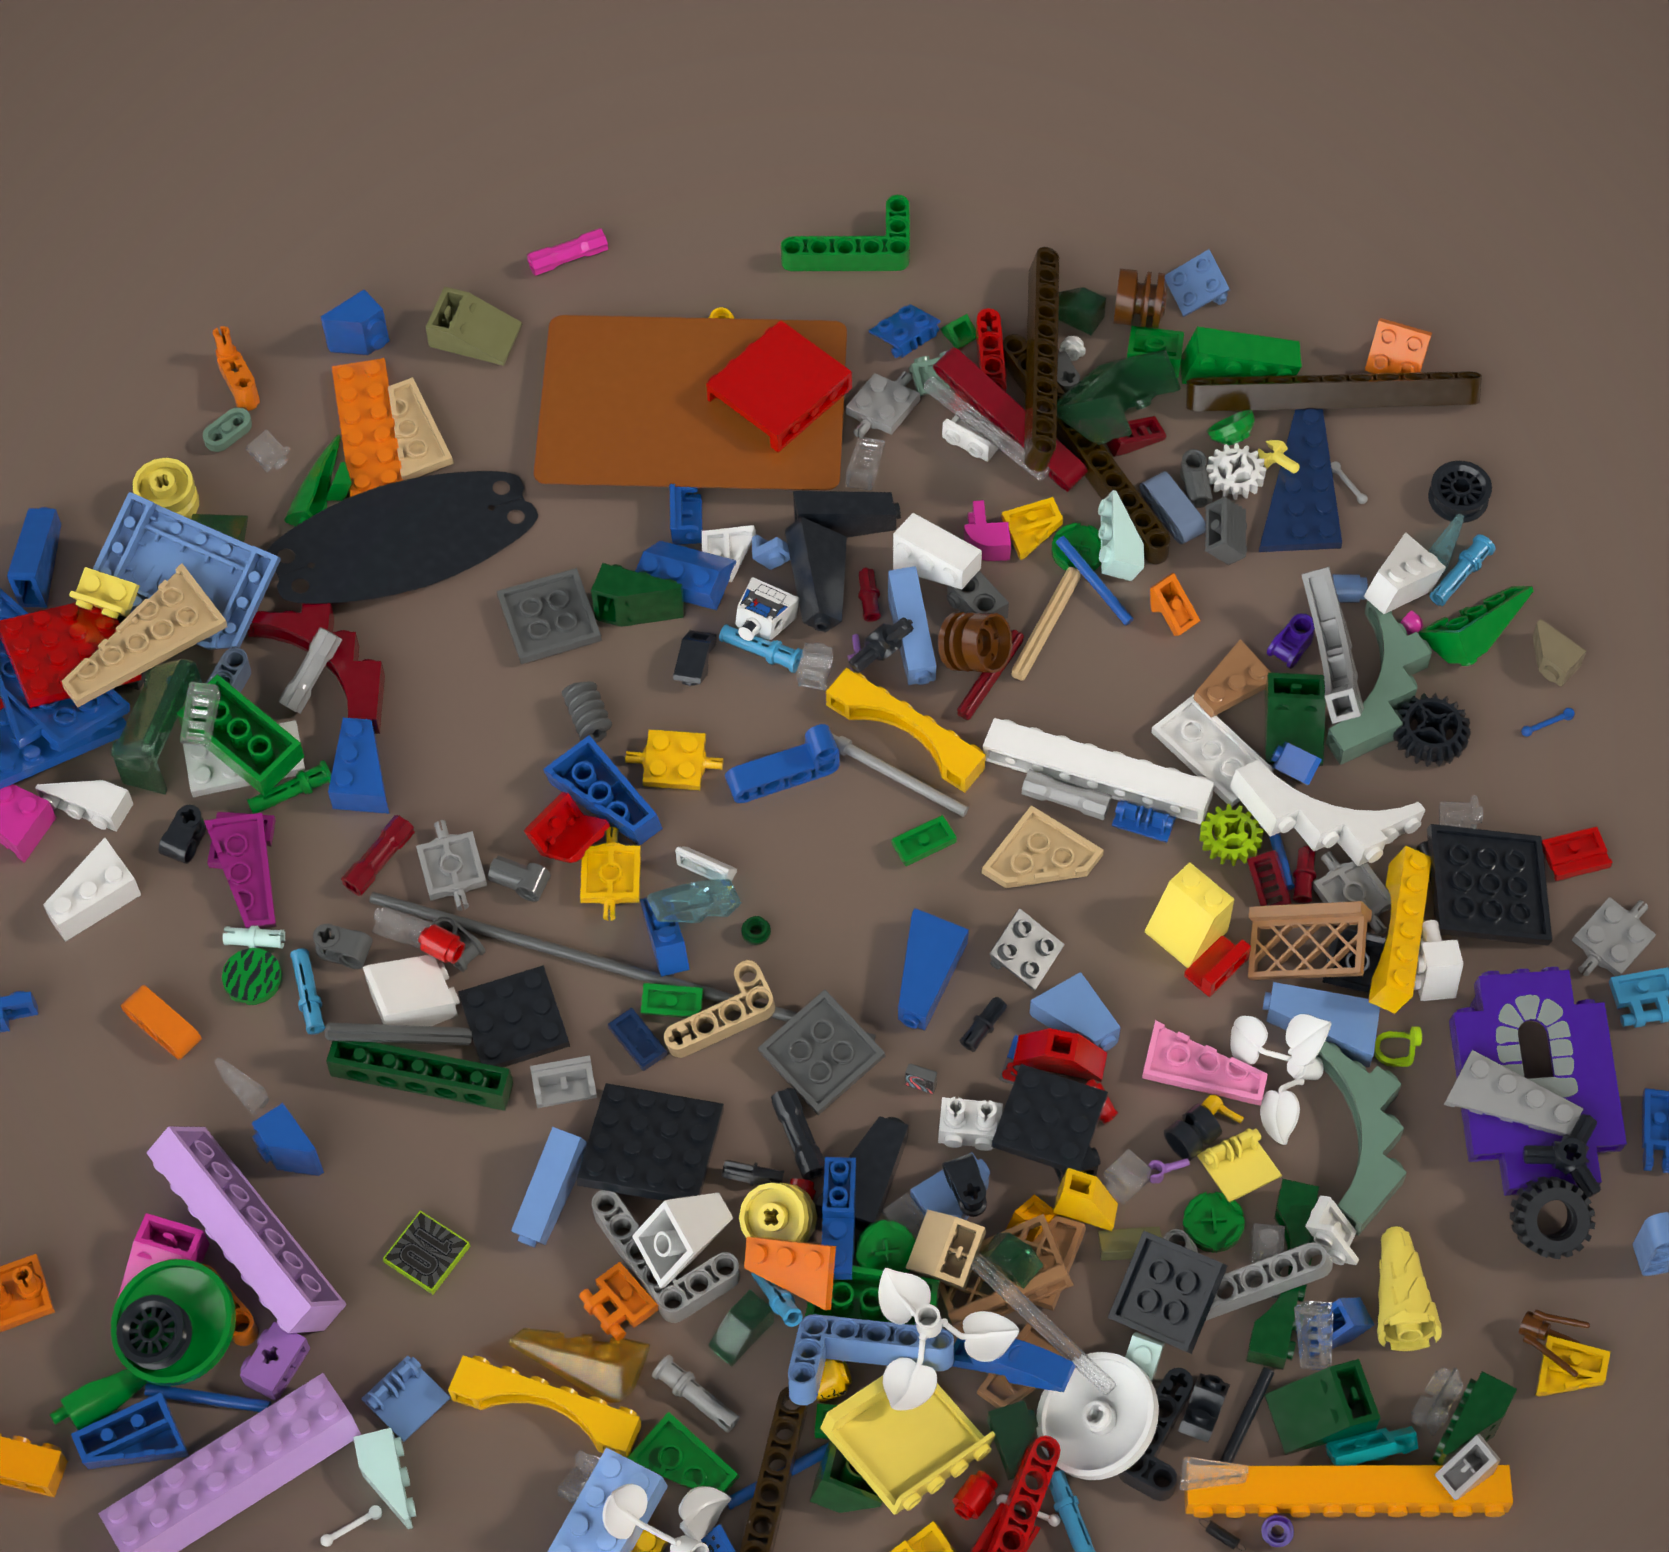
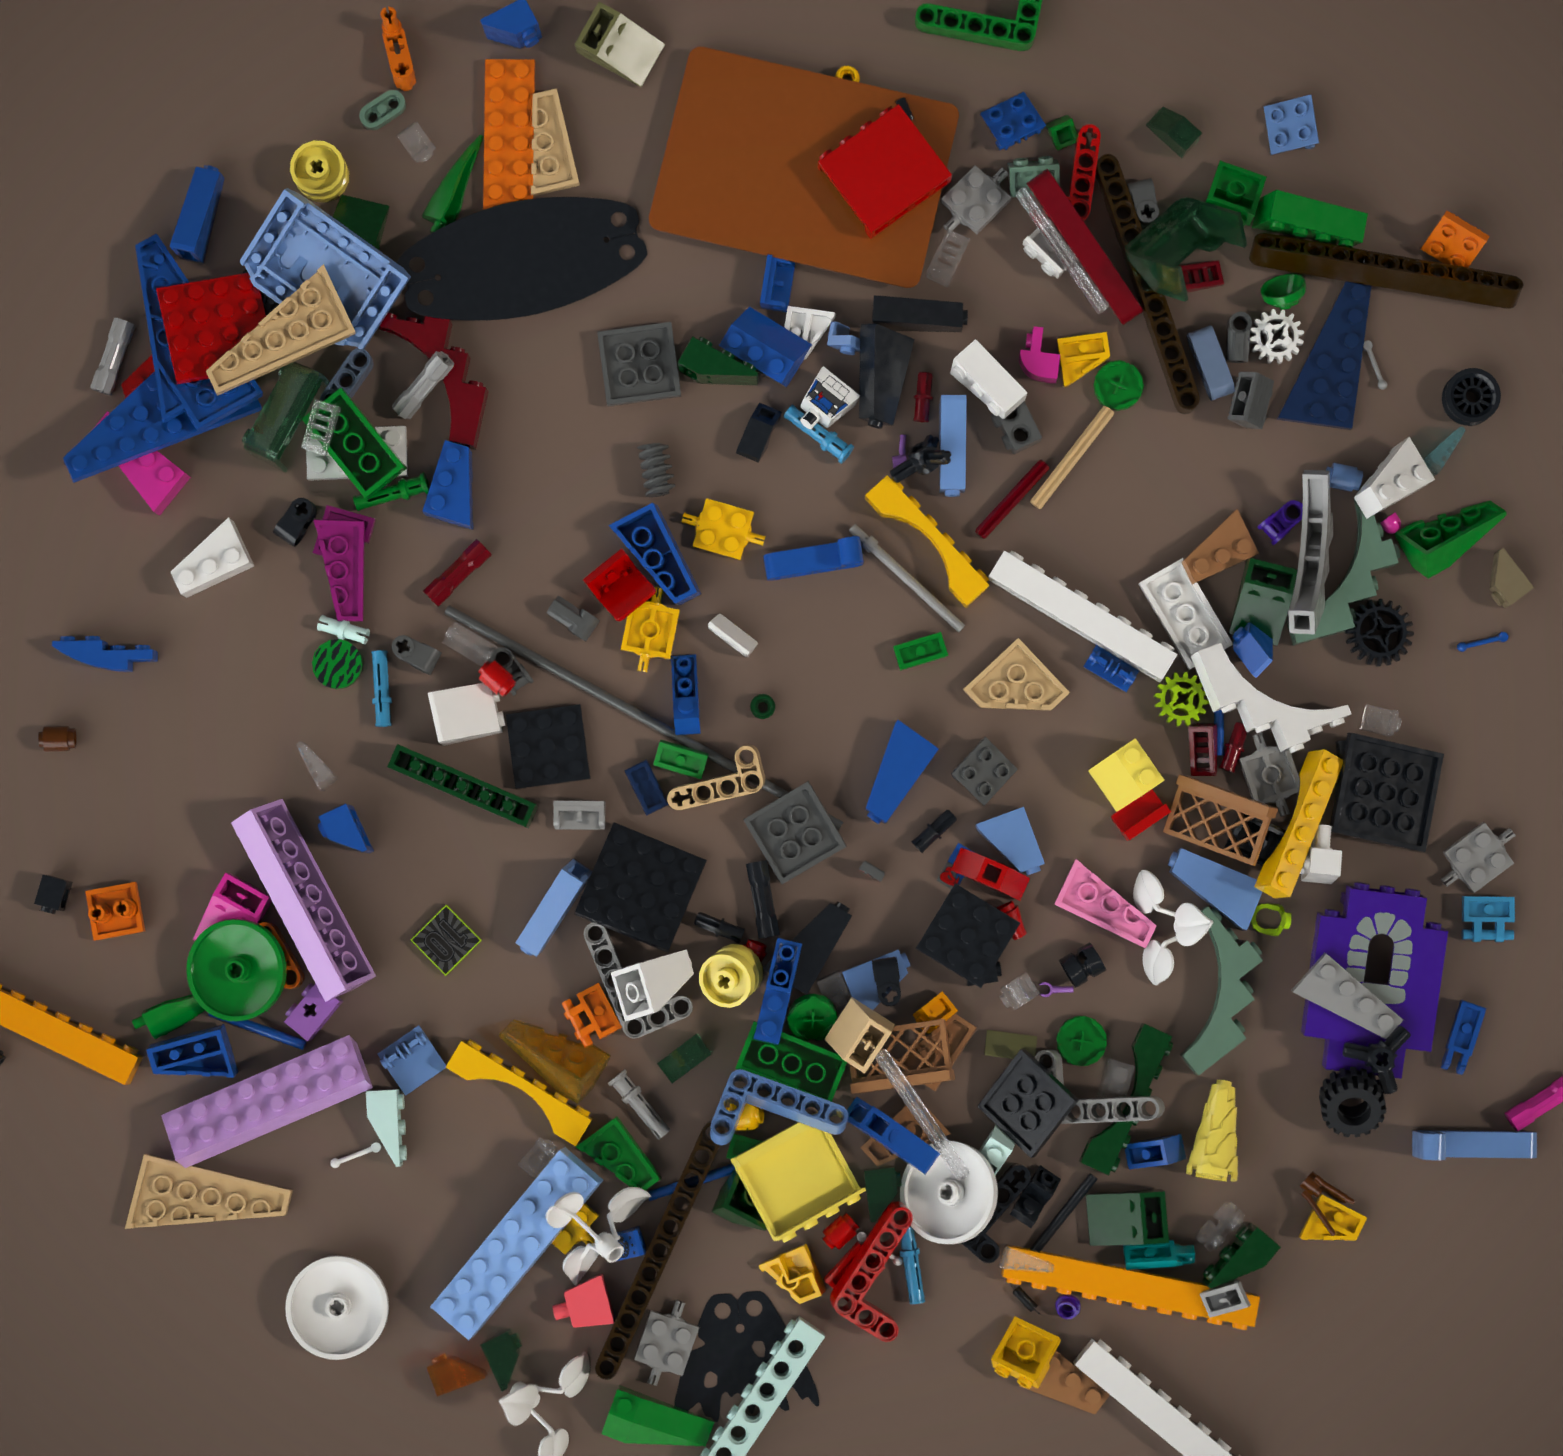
camera: 15 degrees right, 25 degrees up
(91, 800) = (224, 472): white slope -> none
(105, 592) = (253, 280): light yellow bracket -> none
(143, 1348) = (205, 996): black wheel -> none
(161, 1022) = (257, 693): orange beam -> none
(340, 484) = (475, 189): green slope -> none
(398, 1034) = (449, 751): dark grey axle -> none
(451, 865) = (517, 594): light grey plate -> none
(694, 901) = (714, 676): clear light blue slope -> none
(781, 1301) = (722, 1063): dark azure pin -> none
(794, 1266) = (734, 1027): orange wing -> none
(815, 666) = (861, 462): clear brick -> none
(907, 1295) = (814, 1073): white plant -> none
(968, 1122) = (903, 919): white brick -> none
(975, 642) = (1003, 475): reddish brown wheel -> none
(1013, 1258) = (907, 1055): clear green slope -> none
(1041, 360) = (1123, 200): dark brown beam -> none
(1073, 347) = (1160, 174): white plate -> none
(1085, 800) = (1050, 631): light grey axle -> none
(1085, 1200) = (981, 1008): yellow slope -> none
(1094, 580) = (1123, 424): blue bar -> none
(1120, 543) = (1155, 392): light aqua slope -> none
(1139, 298) = (1233, 137): reddish brown wheel -> none
(1171, 600) = (1187, 467): orange slope -> none
(1214, 1104) = (1105, 940): yellow hand -> none
(1239, 1164) = (1114, 998): light yellow hinge -> none
(1278, 457) = (1318, 330): light yellow bar -> none
(1324, 1333) = (1144, 1145): clear slope -> none
(1332, 1231) = (1172, 1076): white bracket -> none
(1469, 561) = (1459, 471): dark azure pin -> none
(1576, 853) = (1469, 774): red plate -> none

